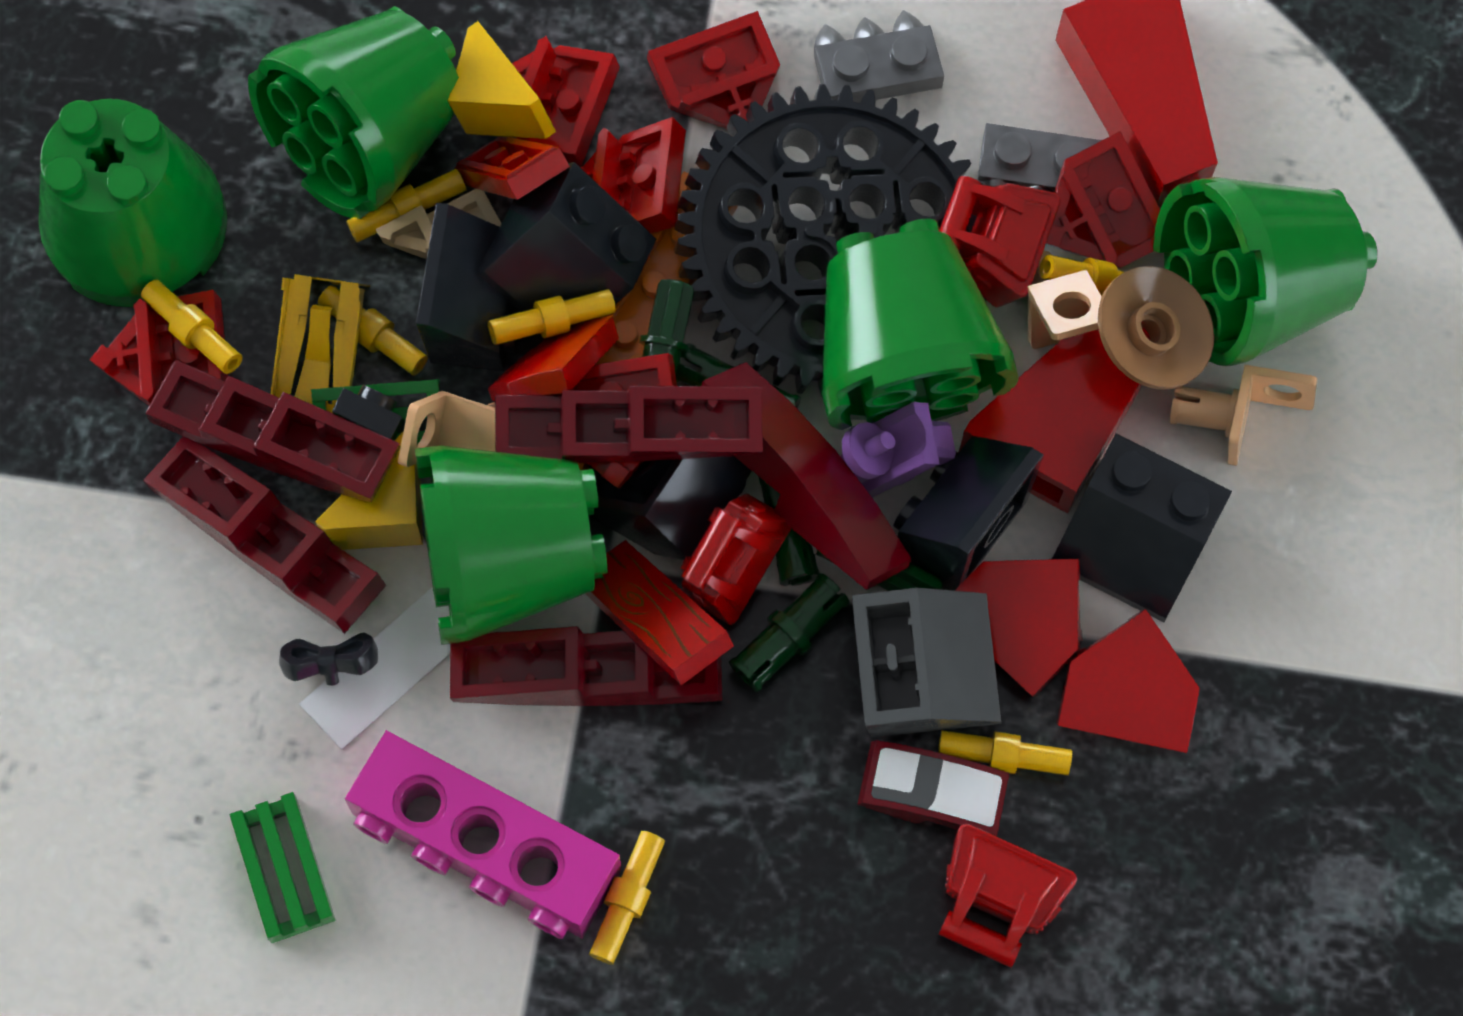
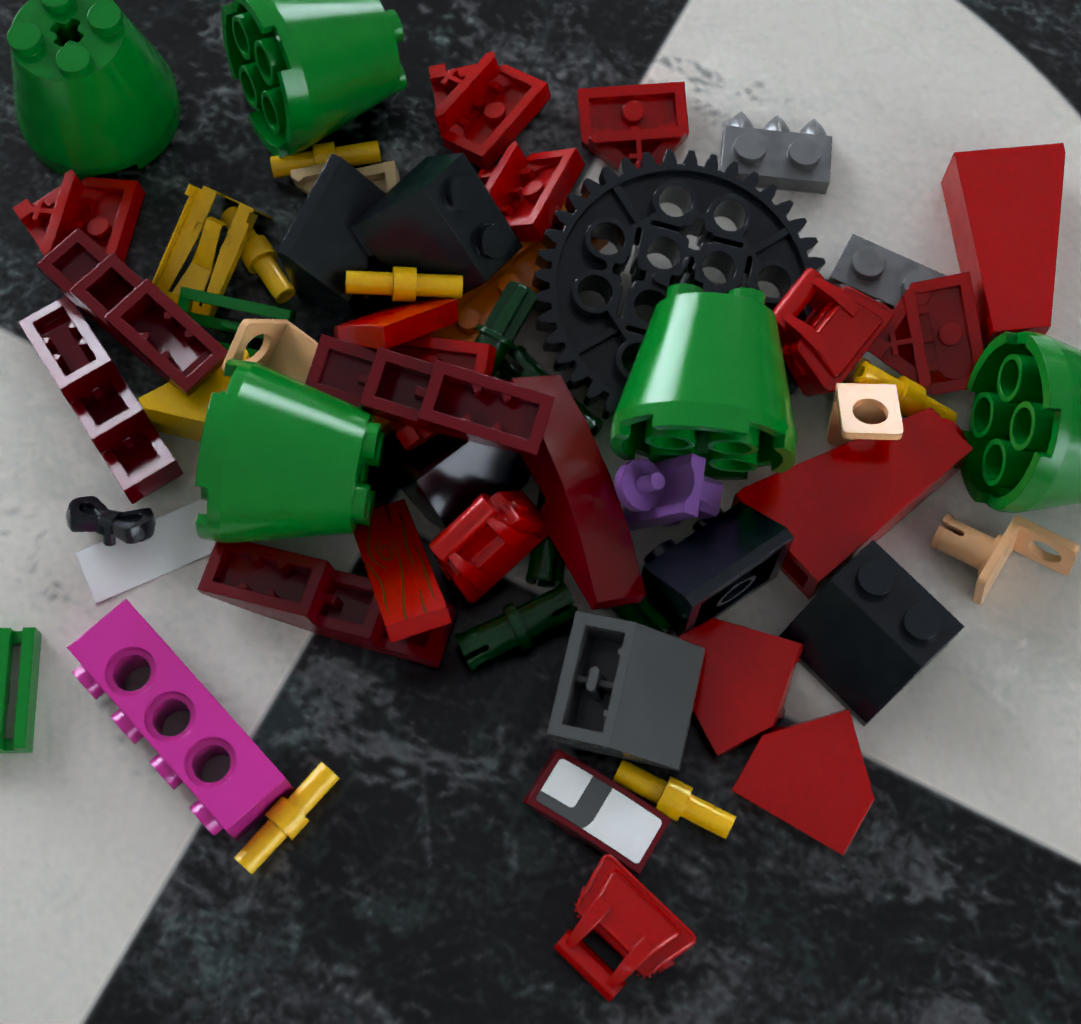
camera: 20 degrees right, 0 degrees up
(191, 326) = (104, 205): yellow bar -> none
(369, 410) = (215, 316): black plate -> none
(493, 95) = (424, 83): yellow slope -> none
(511, 166) = (417, 146): red tile -> none
(1172, 316) = (961, 450): medium nougat dish -> none

